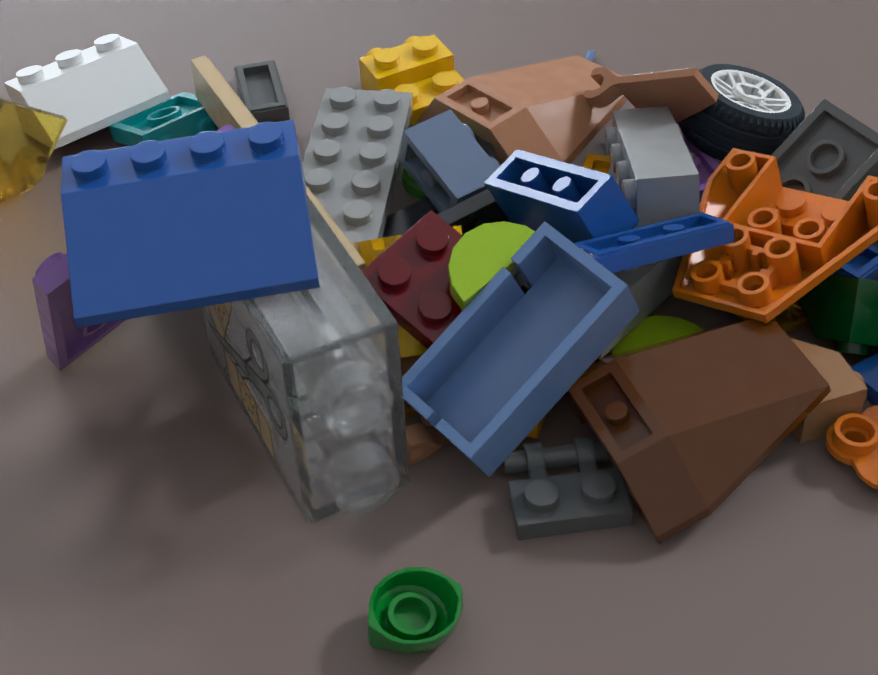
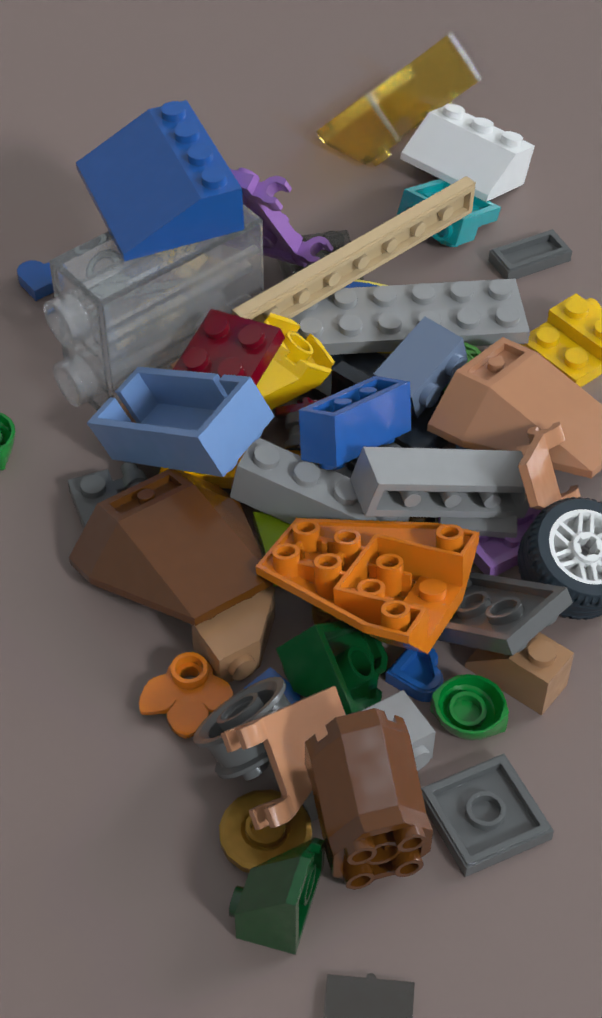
camera: 75 degrees right, 5 degrees up
(87, 530) = (35, 278): none -> blue tile
(481, 256) = (230, 359): lime tile -> none
(658, 241) = (308, 478): blue tile -> none

